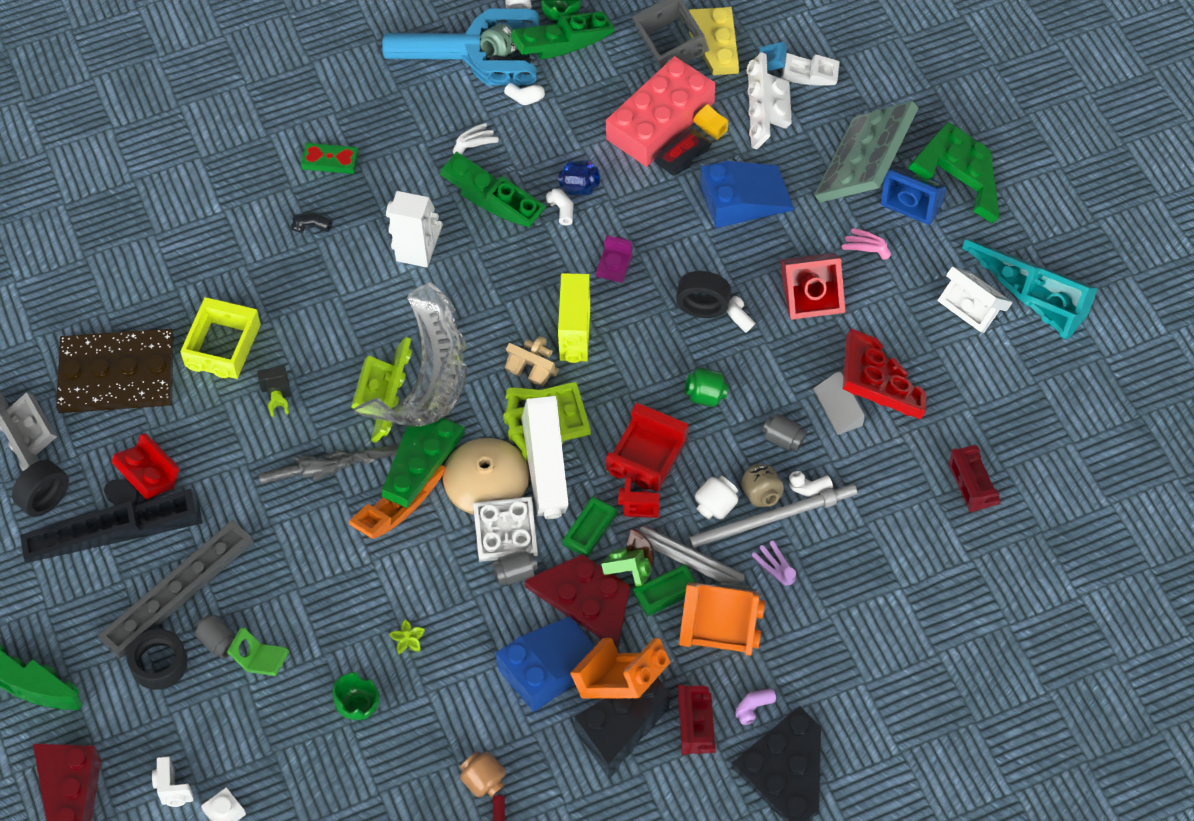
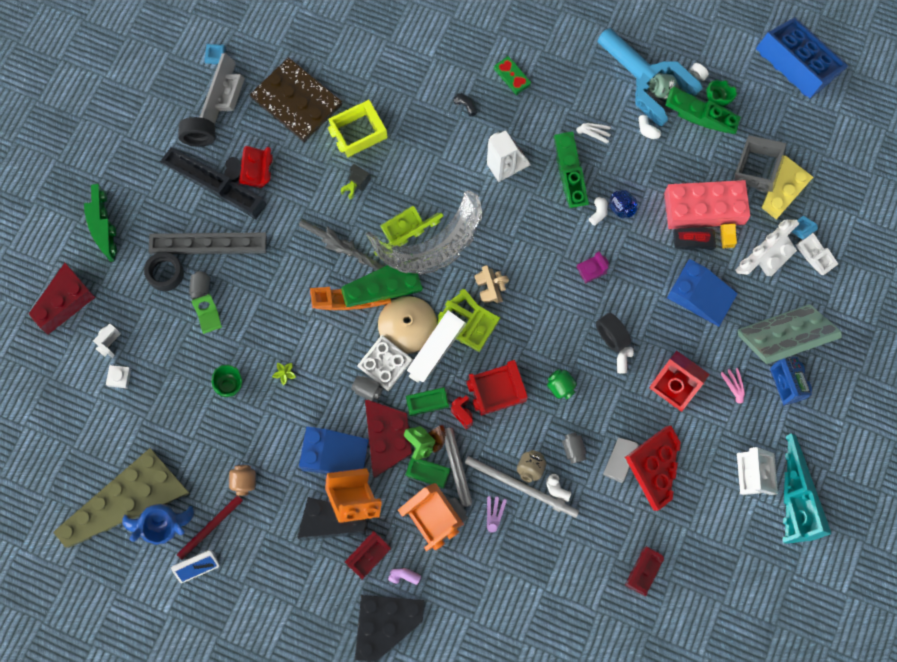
camera: 45 degrees right, 15 degrees up
(574, 317) = (533, 282): neon yellow window -> none
(716, 497) = (502, 449): white head -> none
(966, 161) = (841, 389): green wing -> none

